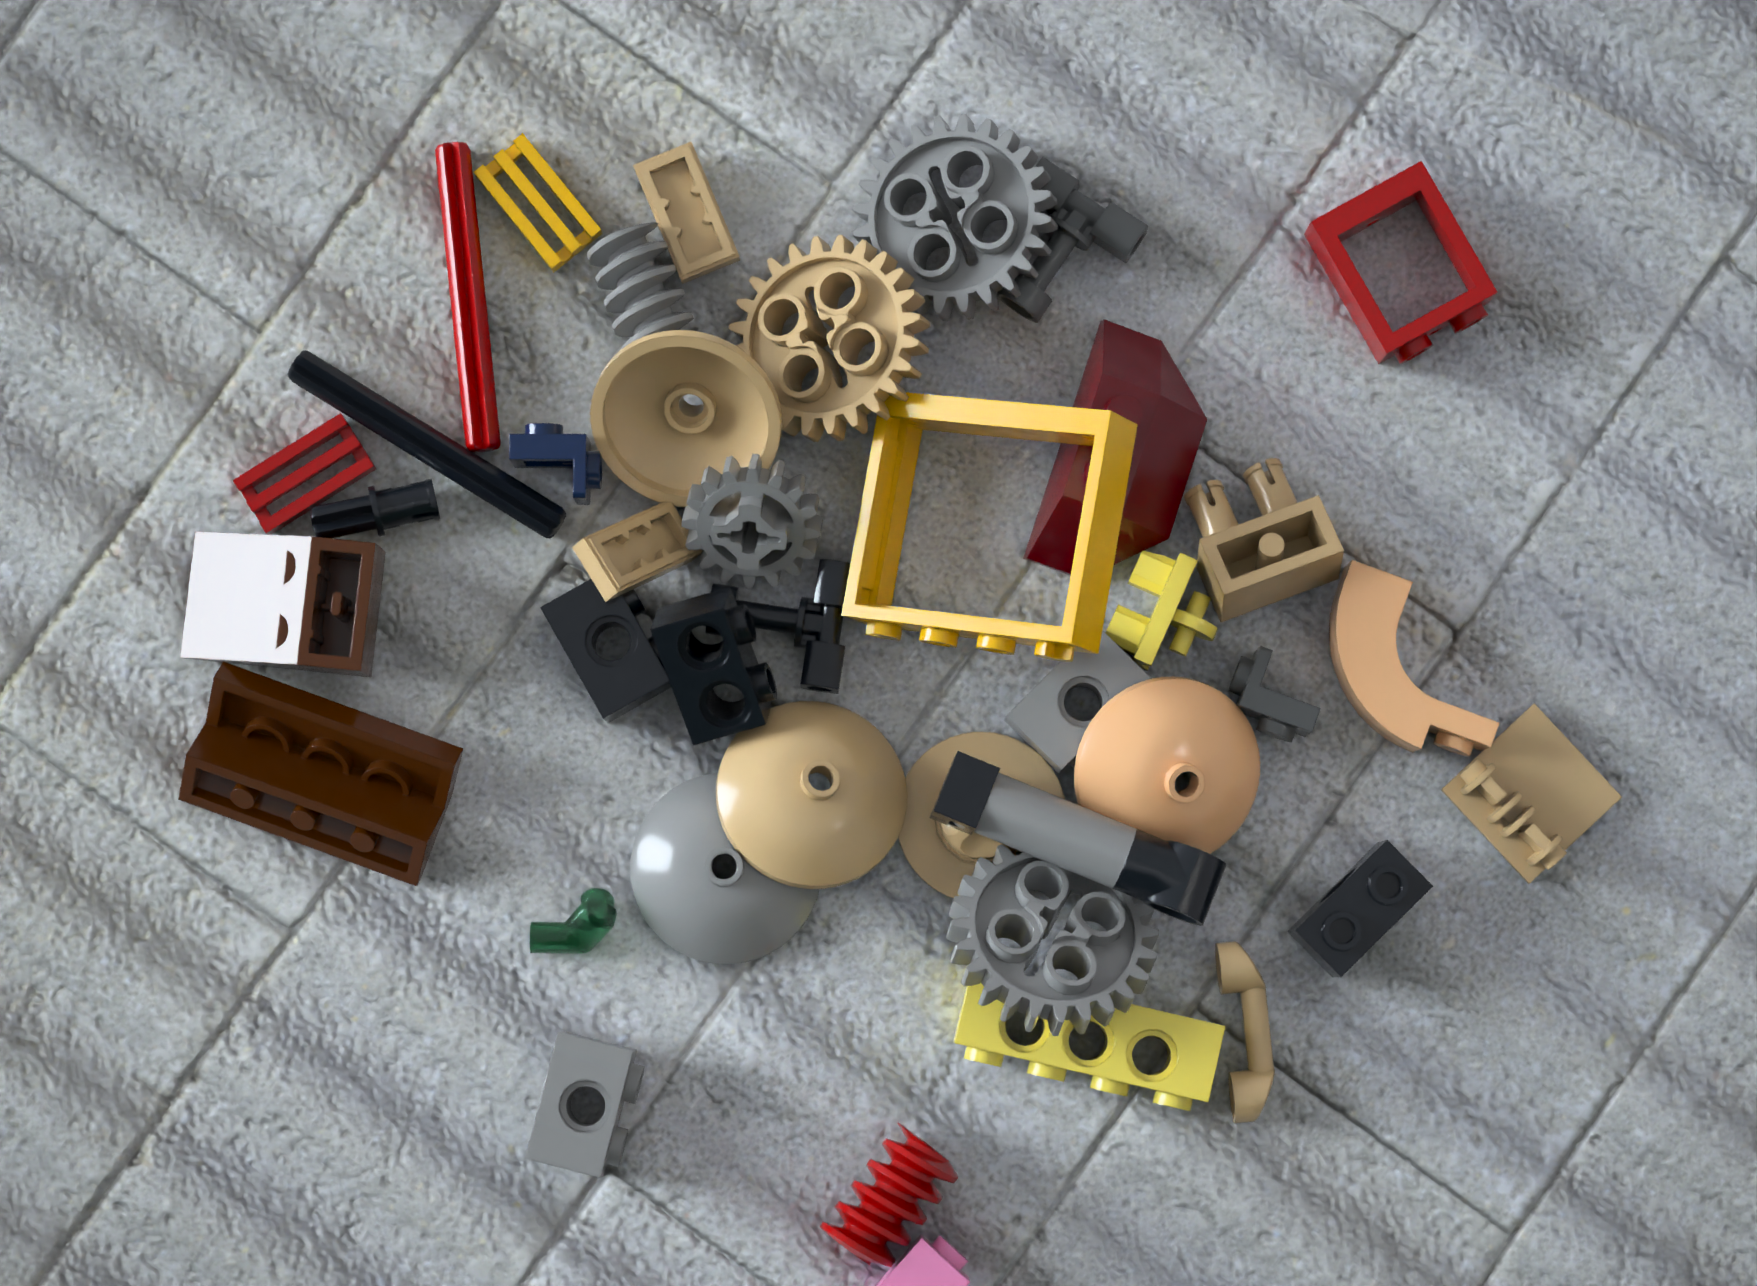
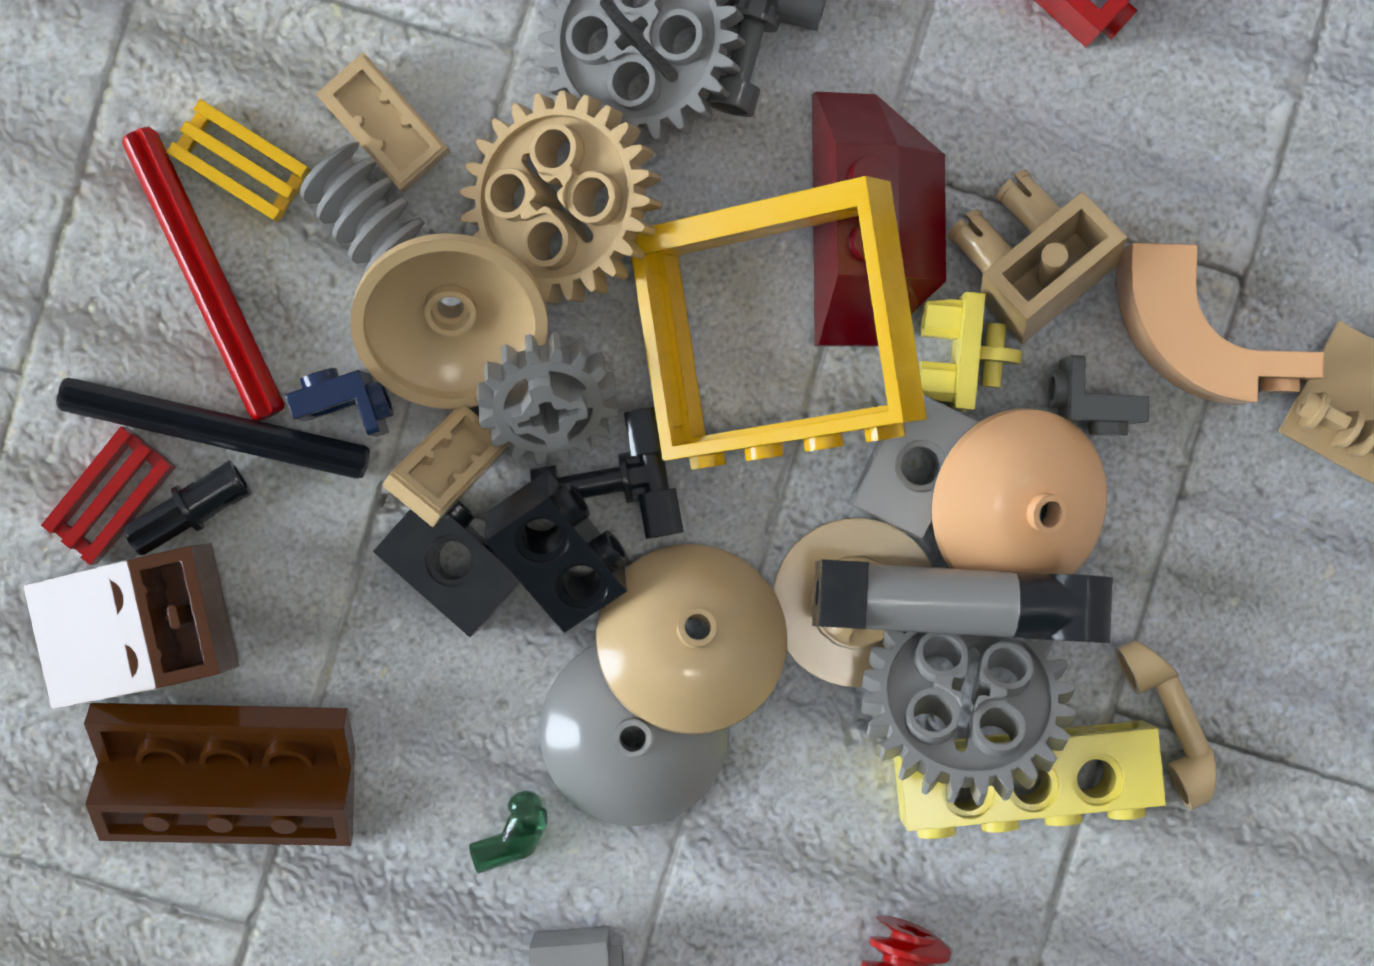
camera: 20 degrees left, 5 degrees up
(1360, 908) = (1244, 571): black brick -> none

